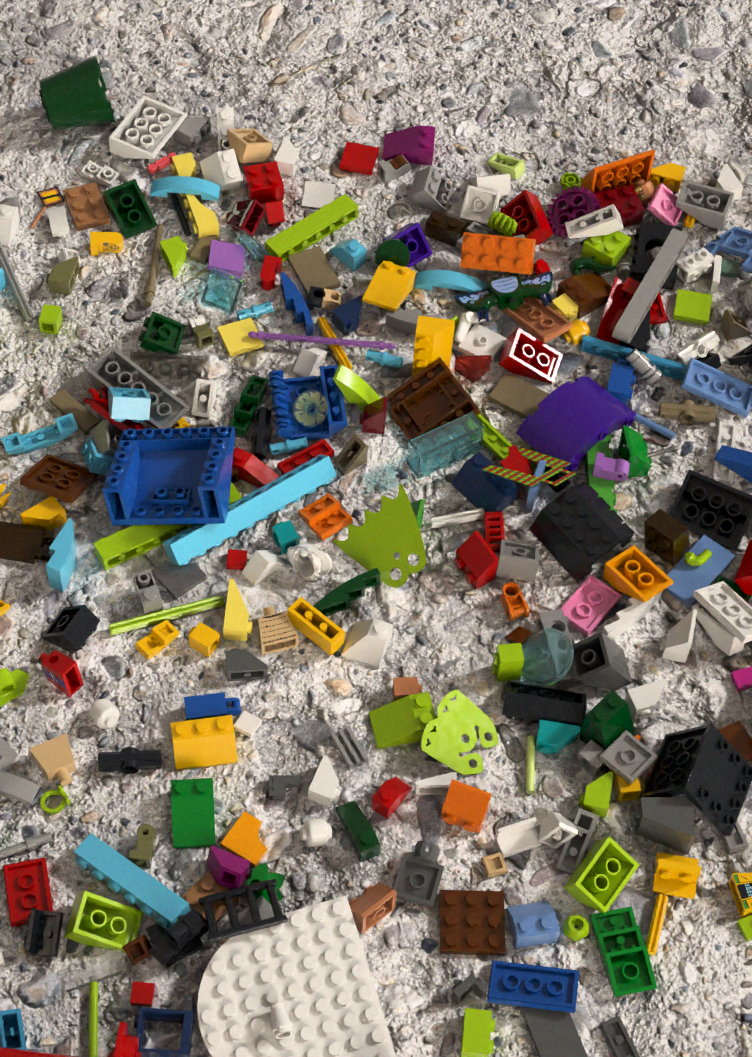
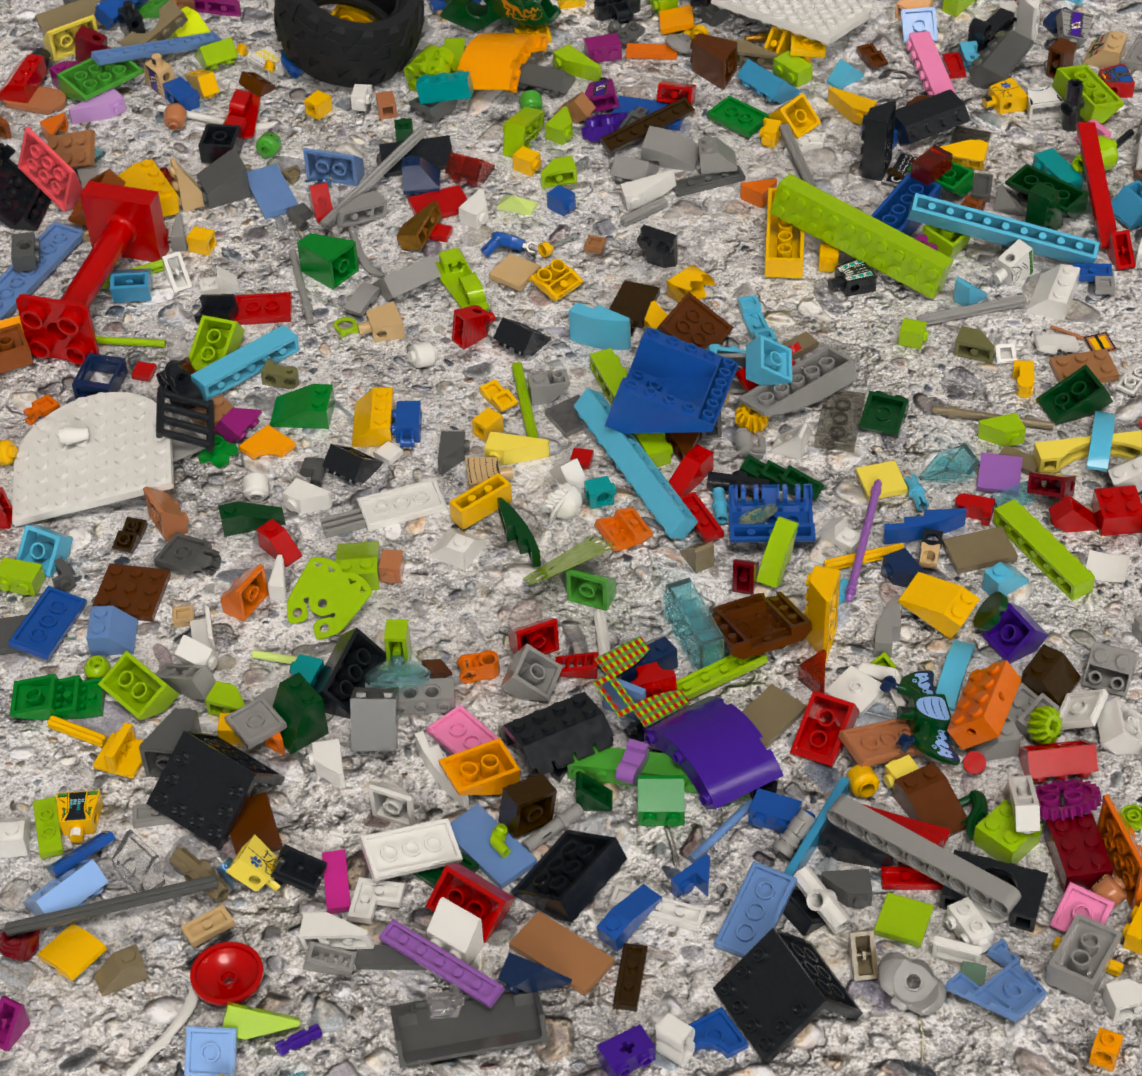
camera: 105 degrees right, 10 degrees down
(129, 760) = (369, 369): black piece -> none
(201, 330) = (889, 447): olive leg -> none
(271, 750) = (350, 463): none -> black slope
(316, 701) = (402, 504): none -> white tile
(393, 943) = (130, 536): none -> dark brown slope
(434, 1020) = (44, 547): none -> medium azure slope
(633, 506) = (592, 794): none -> dark green slope
(676, 333) = (850, 886): none -> dark grey slope
(687, 412) = (723, 876): dark tan piece -> none
(692, 428) = (694, 875): none -> blue slope

